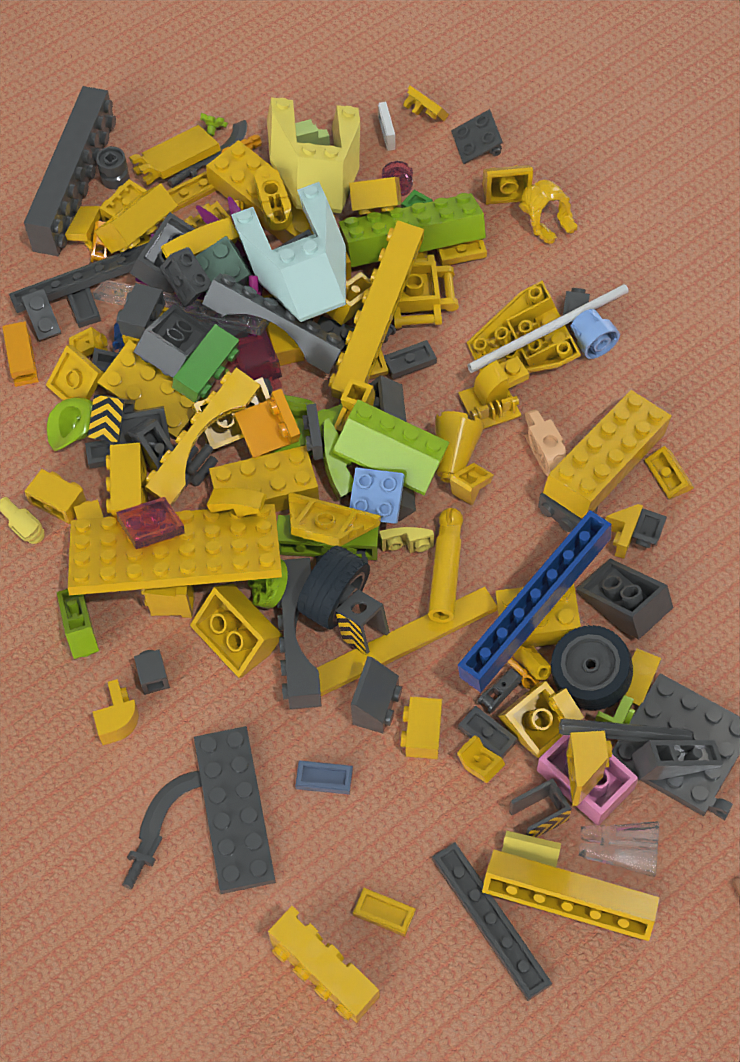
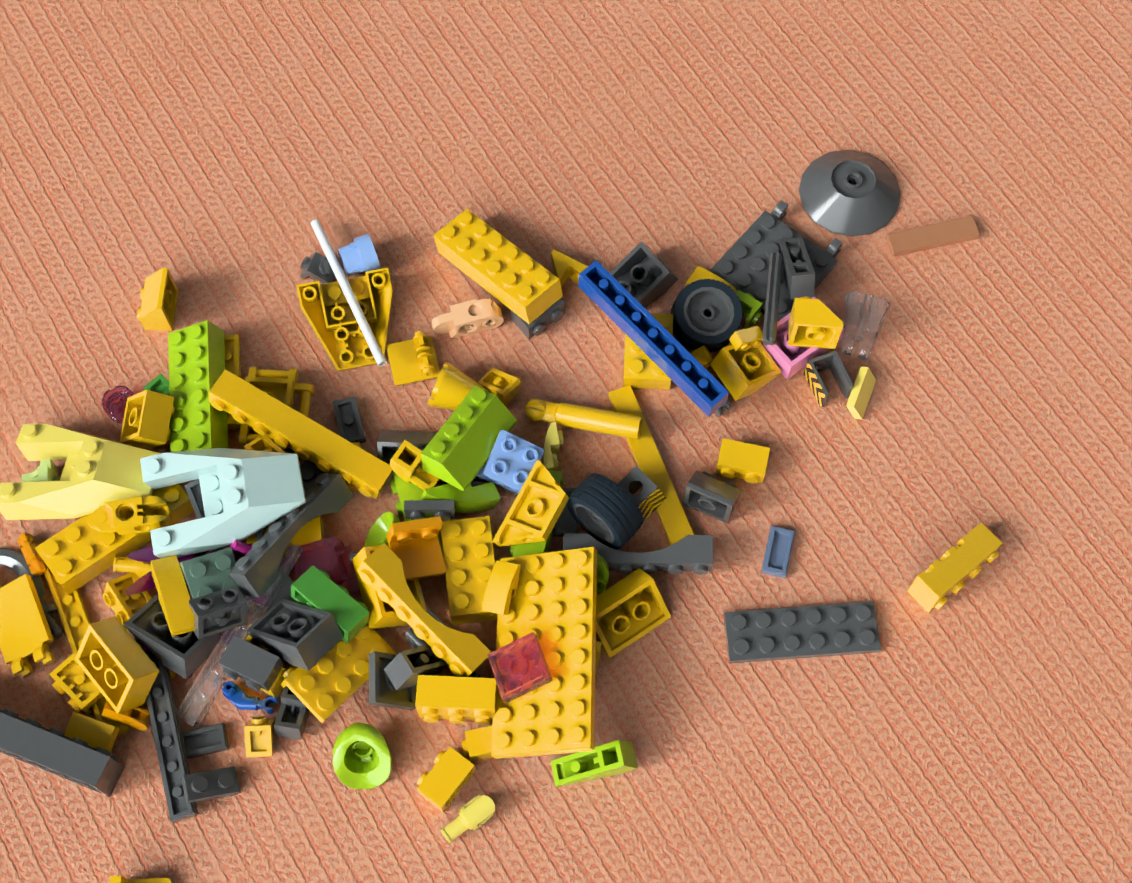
camera: 85 degrees left, 5 degrees up
(20, 354) = (255, 811): light orange piece -> none
(74, 375) = (306, 749): yellow plate -> none
(97, 452) = (401, 726): dark grey bracket -> none
(108, 417) = (371, 708): piece -> none
(112, 167) = (23, 693): dark grey wheel -> none
(117, 720) = (706, 726): yellow brick -> none
(151, 671) = (659, 694): dark grey brick -> none
(153, 821) = (806, 705): dark grey sword -> none
(384, 912) = (904, 516): yellow tile -> none
(386, 126) = (48, 404): white tile -> none
(421, 101) = (39, 358): yellow plate -> none
(478, 137) = (88, 322): dark grey hinge -> none
(480, 760) = (778, 419): yellow bracket -> none
(491, 733) = (751, 411): dark grey plate -> none
(492, 922) = (915, 435): dark grey tile -> none
(497, 378) = (399, 342): yellow brick -> none
(536, 198) = (192, 272): yellow hair -> none
(571, 895) = (902, 369): yellow brick -> none
(649, 528) = (573, 250): dark grey bracket -> none
(668, 473) = (517, 227): yellow slope -> none

